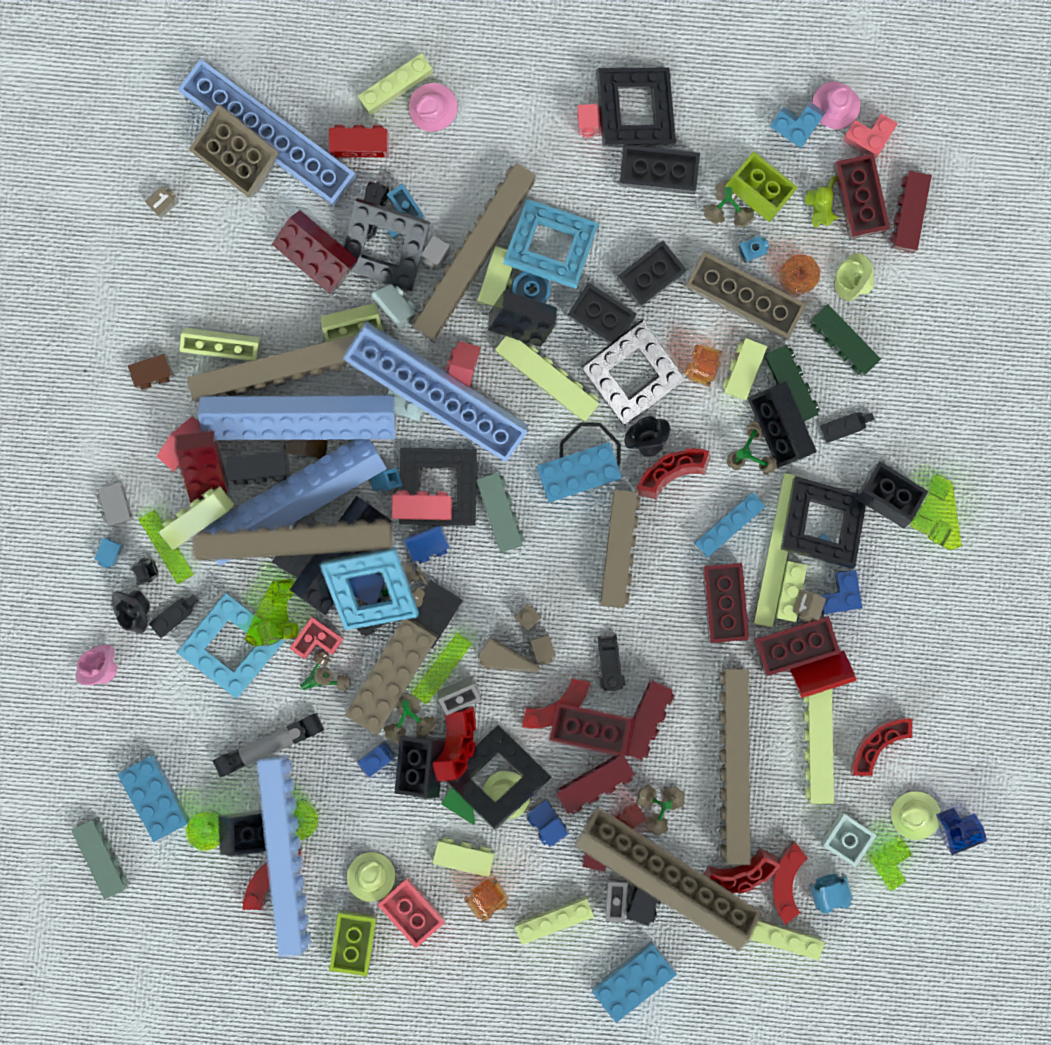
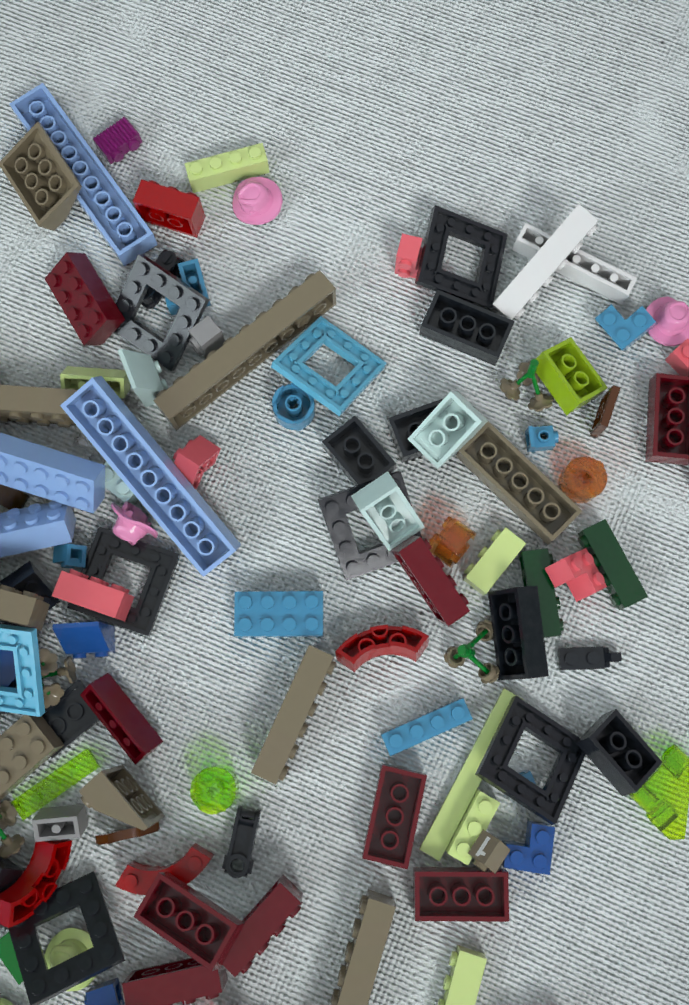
camera: 20 degrees right, 10 degrees down
(285, 89) = (117, 140): none -> magenta brick
(429, 437) = (131, 523): none -> bright pink hat
(478, 598) = (121, 718): none -> dark red brick
(497, 278) = (260, 388): yellowish green brick -> none
(499, 512) = (179, 630): sand green brick -> none
(515, 686) = (126, 833): none -> reddish brown tile
(522, 318) = (272, 430): black brick -> none
(527, 617) = (168, 757): dark tan brick -> none
(543, 649) = (173, 800): dark tan brick -> none
(548, 378) = (280, 502): yellowish green brick -> none
(583, 635) = (205, 798): none -> clear neon green brick
(592, 425) = (313, 569): black piece -> none
(643, 358) = (387, 511): none -> light aqua slope
(648, 435) = (367, 598): black hat -> none
(671, 270) = (447, 429): none -> light aqua slope
(696, 404) = (430, 580): none -> dark red brick
(711, 92) = (545, 262): none -> white brick
(737, 79) = (581, 266): none -> white brick
(801, 209) = (605, 411): none -> reddish brown tile
(819, 358) = (579, 573): none -> coral brick
(822, 200) = (627, 413): lime animal -> none
(823, 675) = (481, 941): red tile -> none
(854, 277) = (642, 500): yellowish green hat -> none

